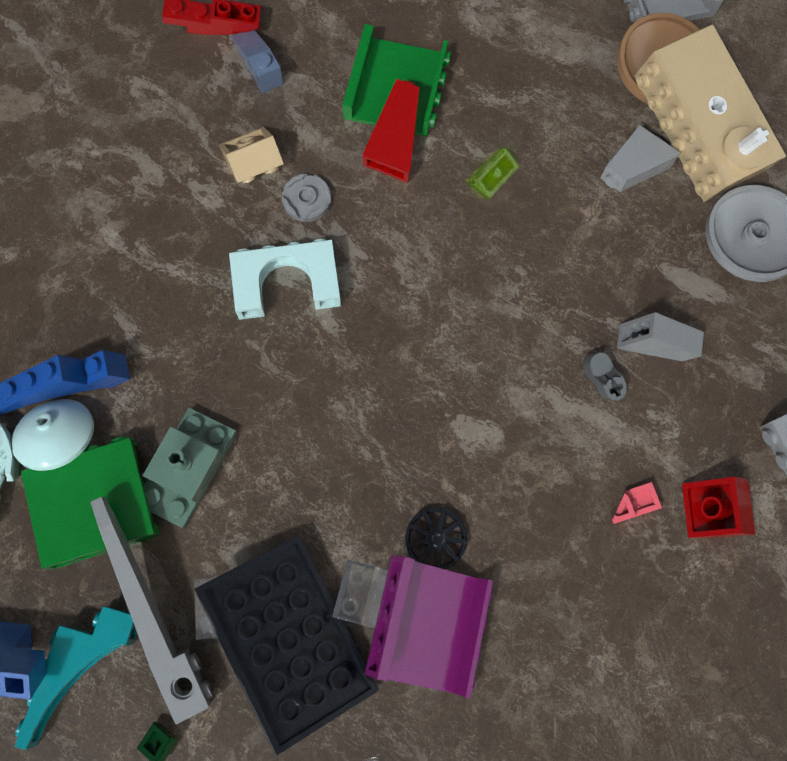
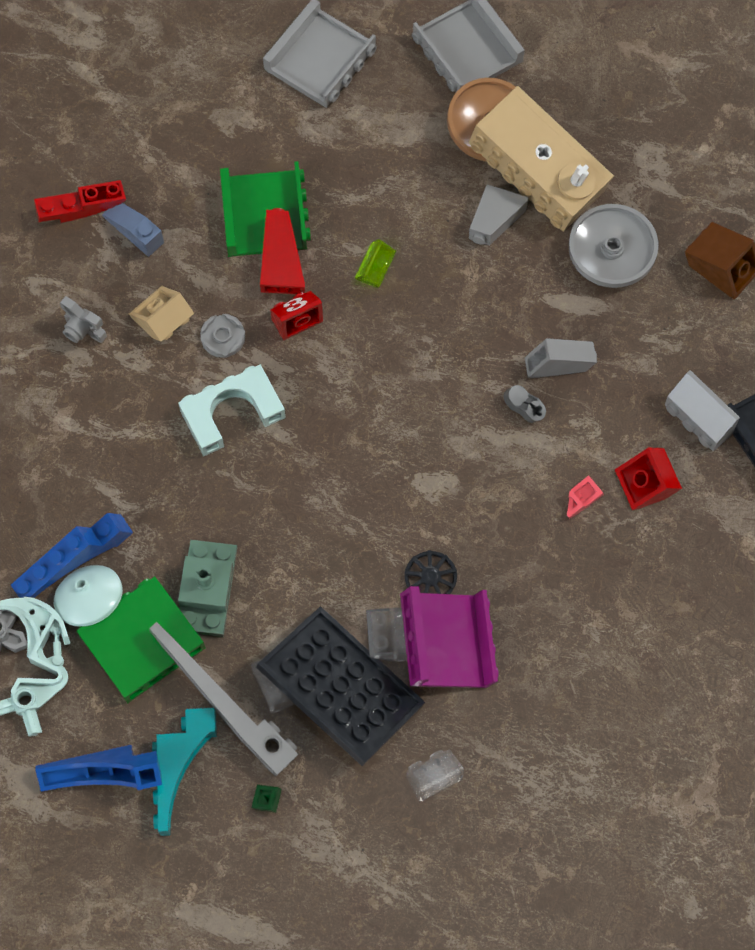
camera: 15 degrees left, 5 degrees down
(161, 136) = (81, 322): none -> light grey plant
(391, 200) = (297, 314): none -> red slope

